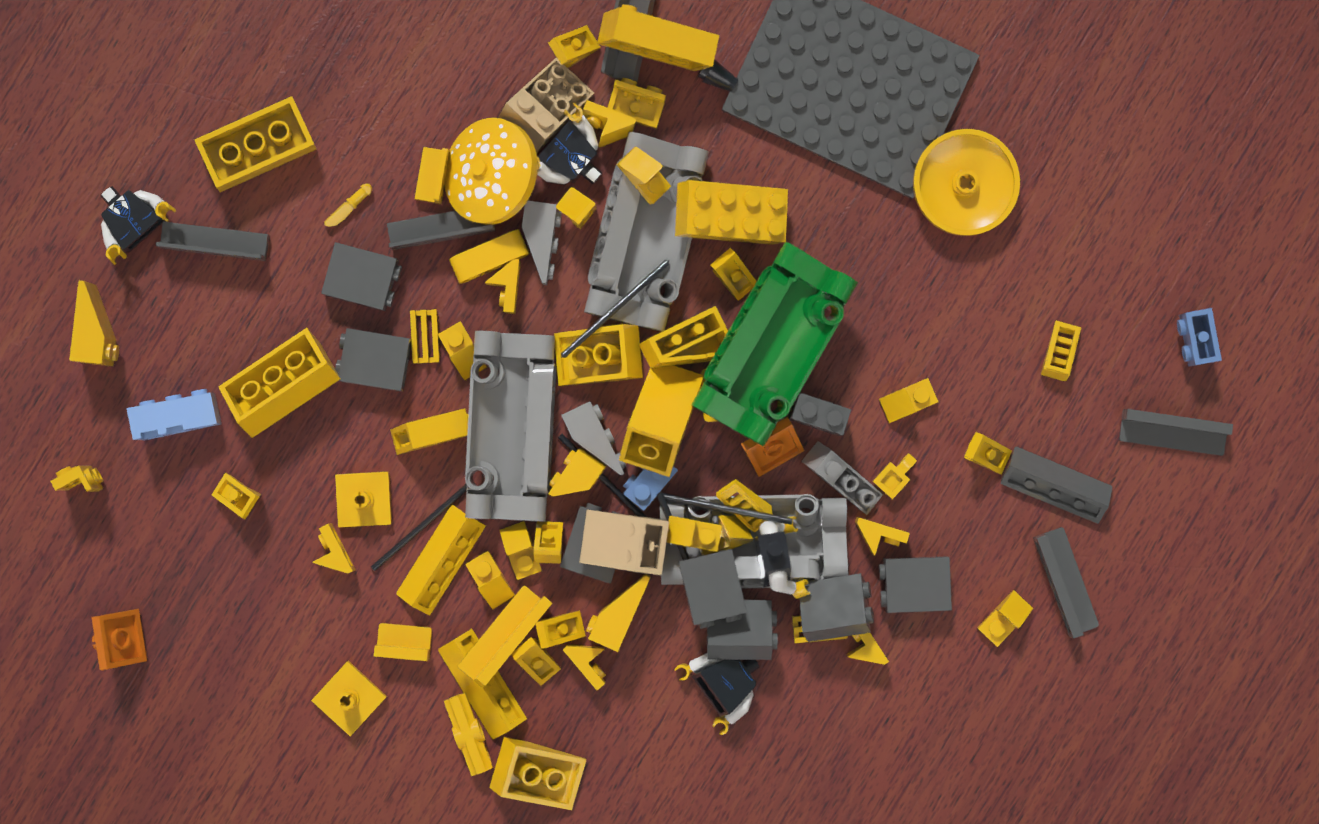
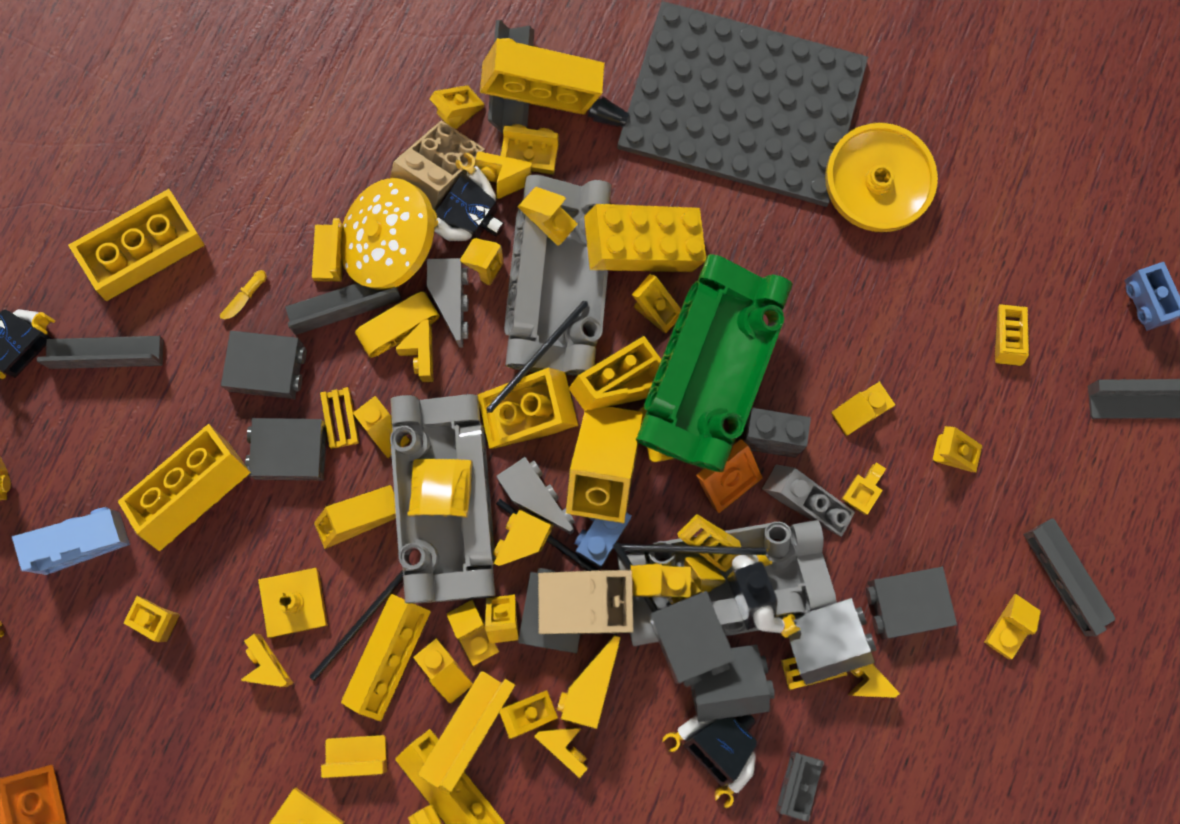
camera: 10 degrees left, 10 degrees down
(509, 419) = (440, 487): none -> yellow slope
(535, 661) = (505, 754): yellow slope -> none
(788, 726) = (799, 786): none -> dark grey hinge
(873, 531) = (853, 554): yellow slope -> none
(1057, 485) = (1039, 474): dark grey panel -> none

